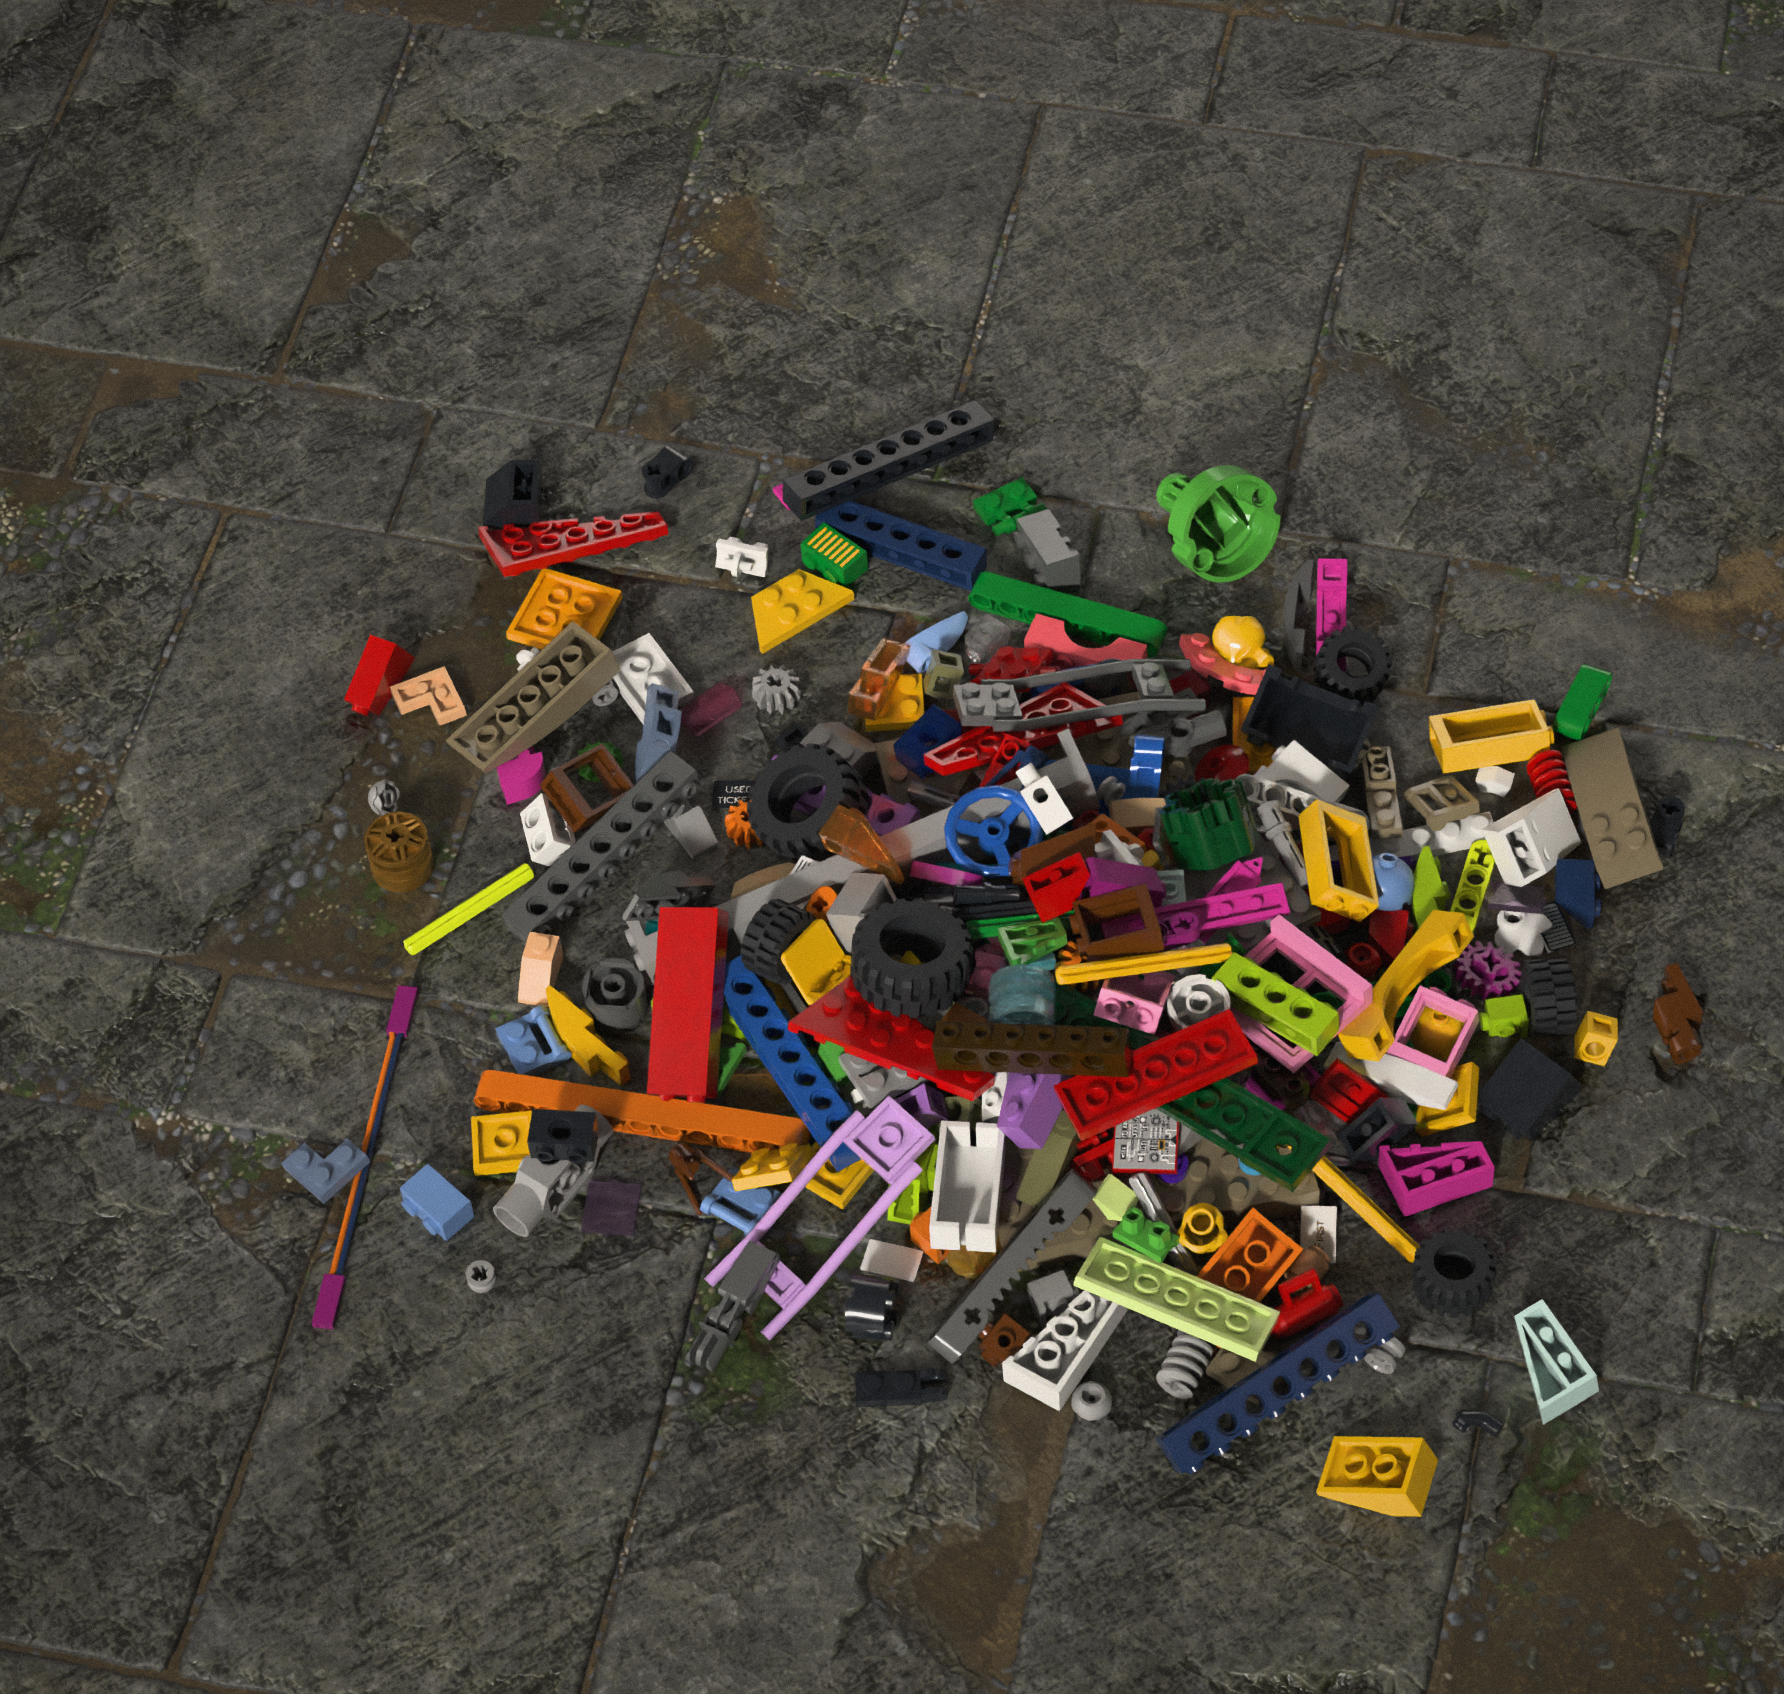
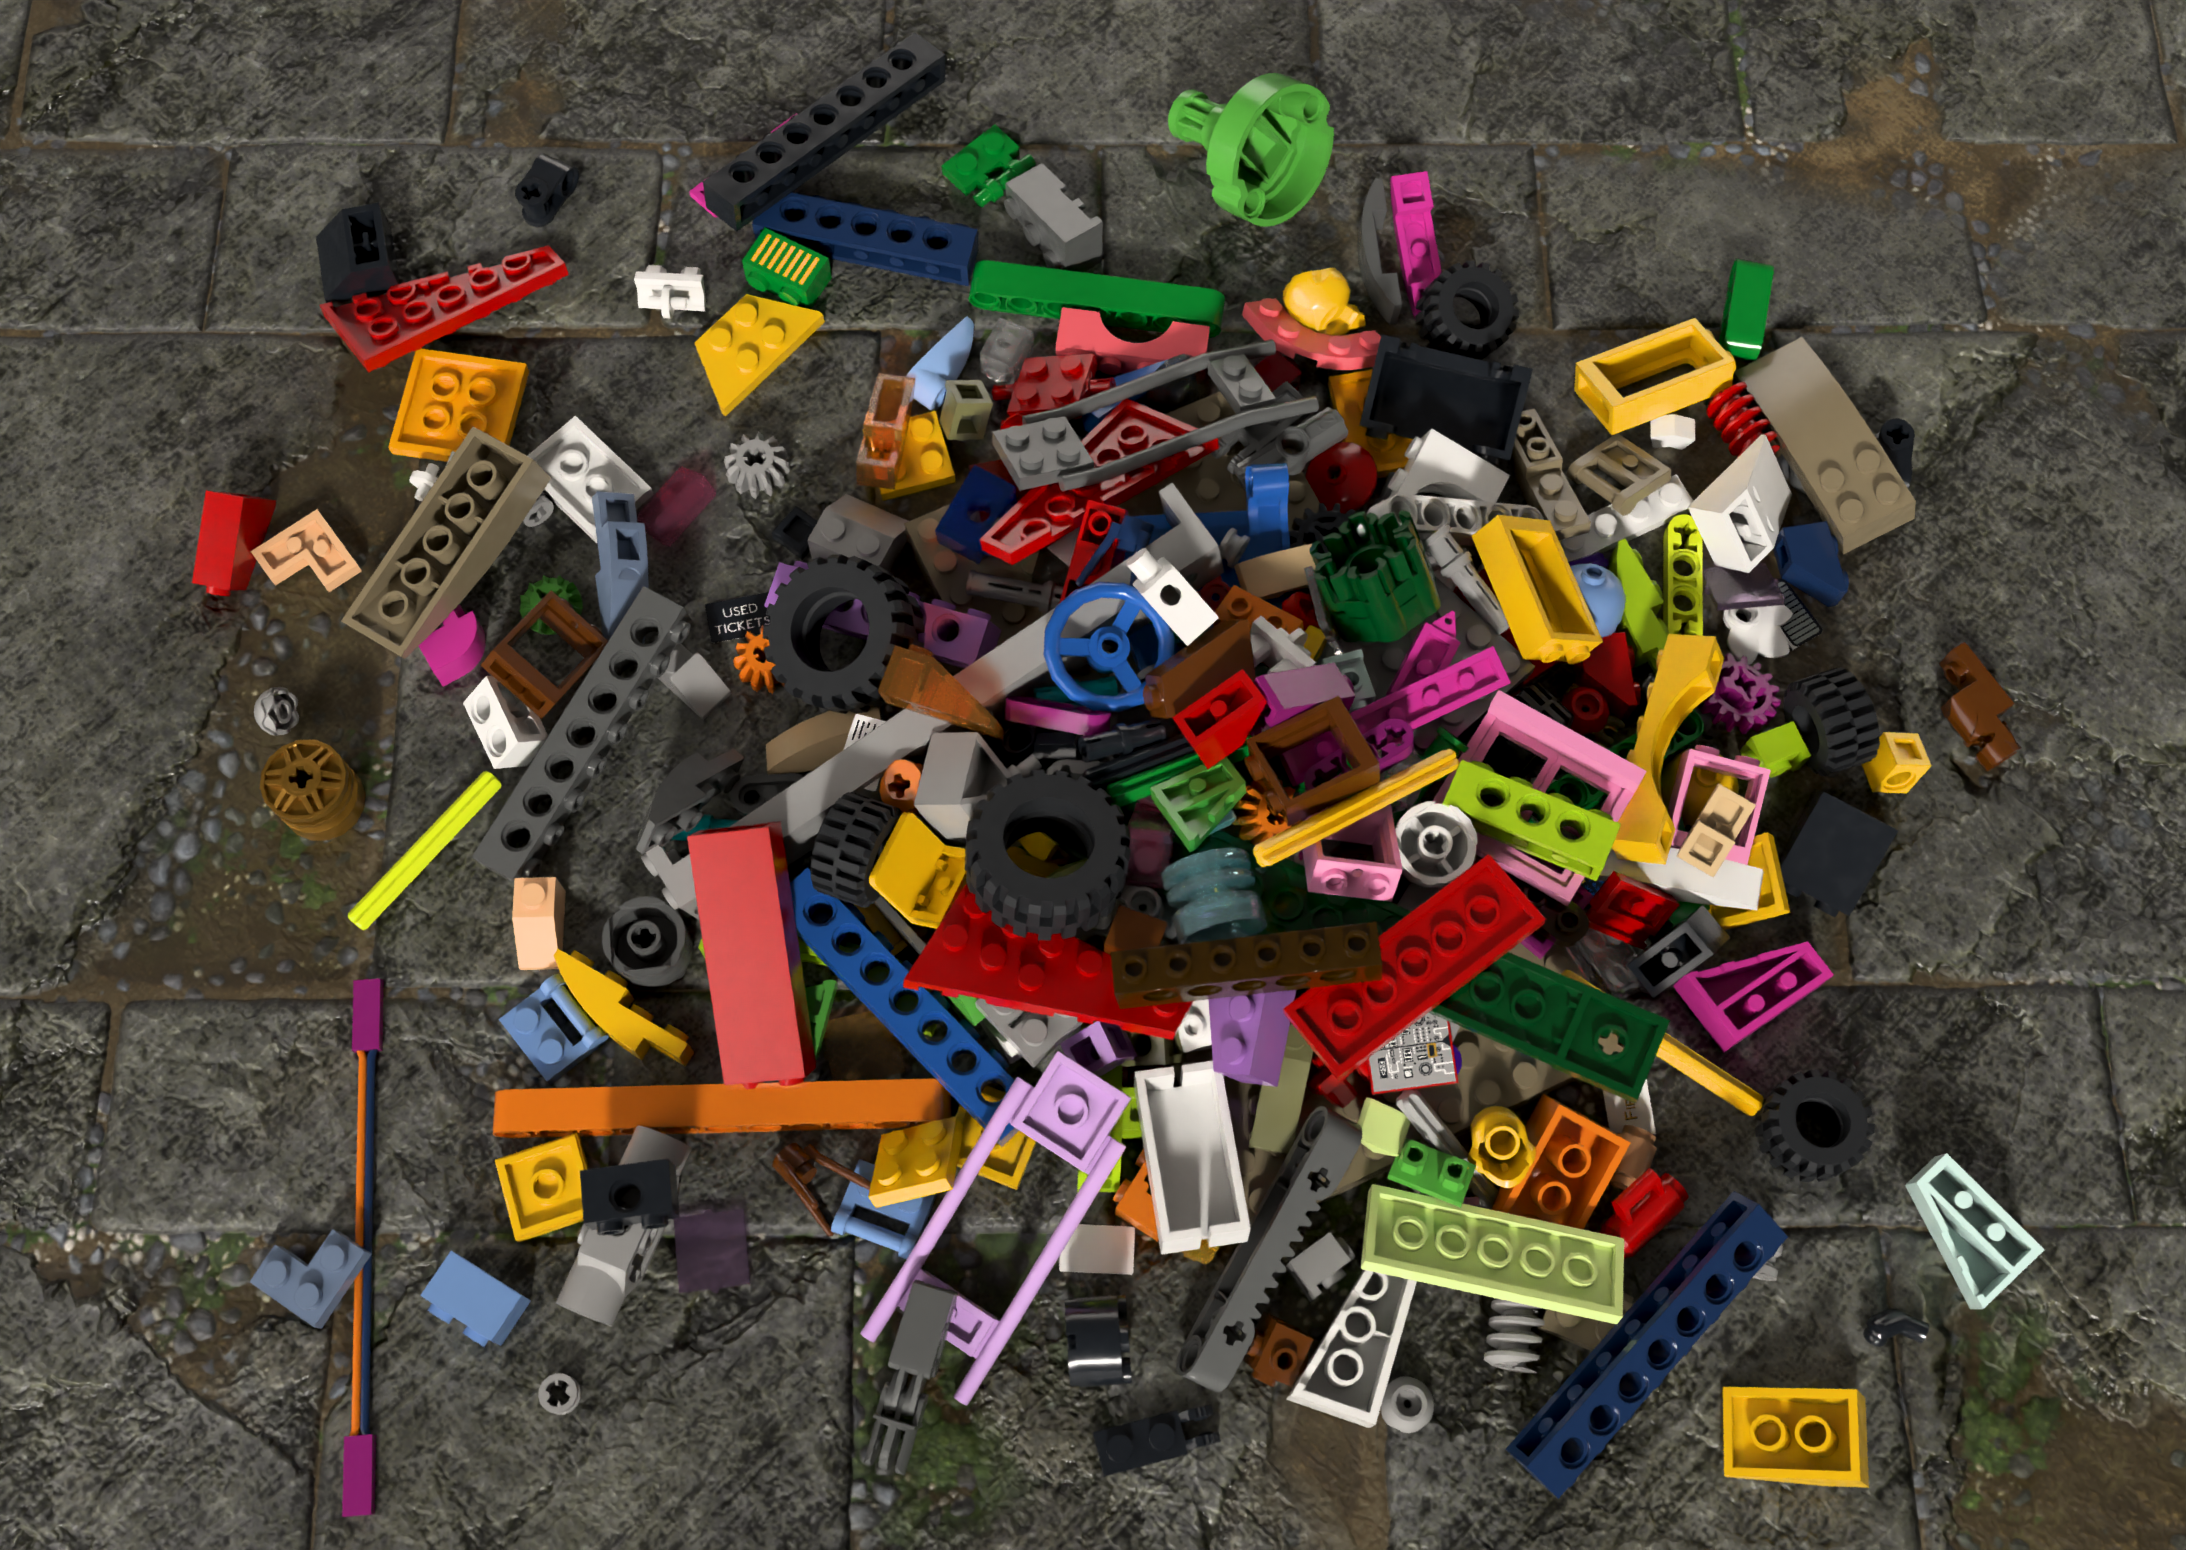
camera: 20 degrees left, 15 degrees up
(1424, 1045) = (1715, 830): none -> tan slope

